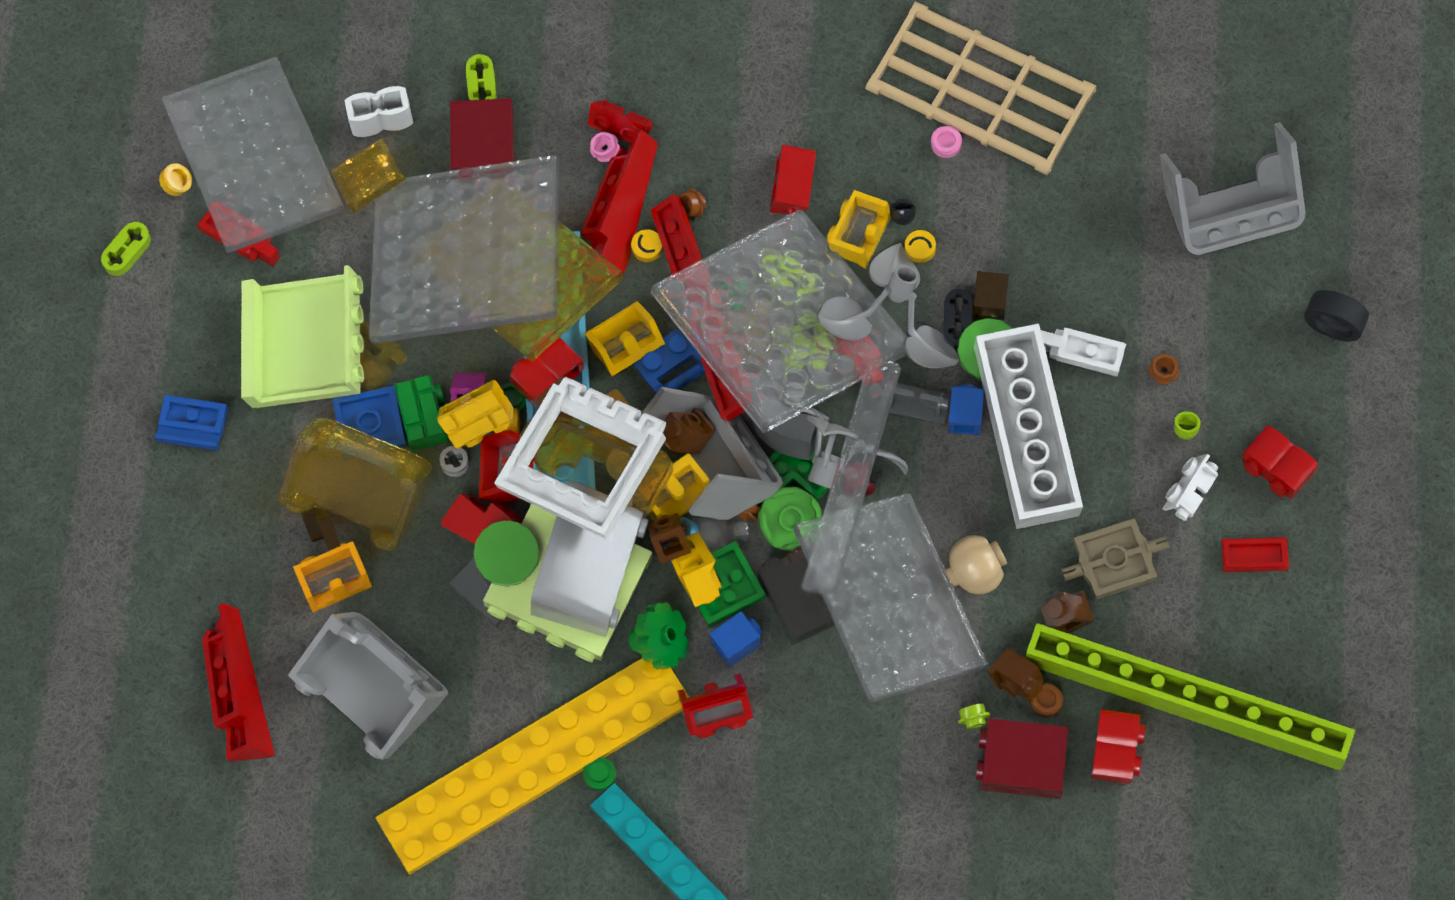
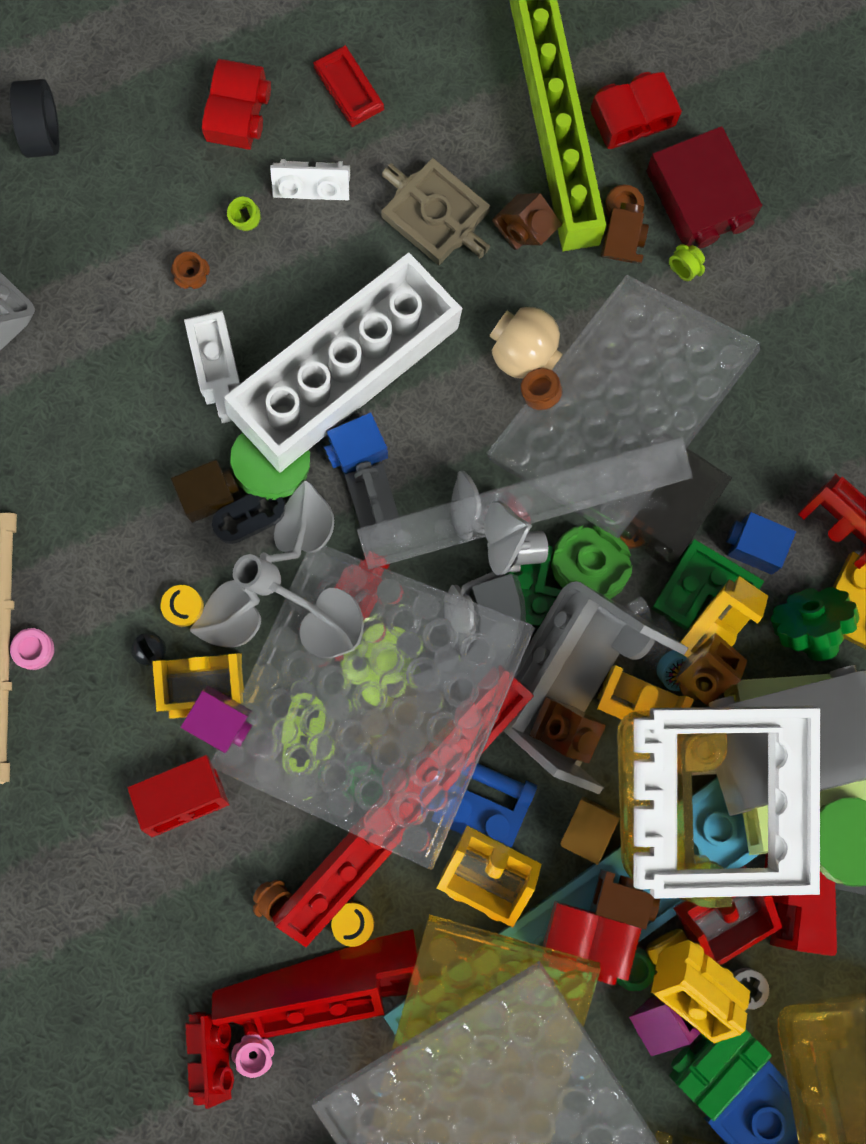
camera: 130 degrees left, 10 degrees up
(823, 219) = (218, 720): none -> magenta brick
(933, 551) = (541, 389): none -> dark orange tile

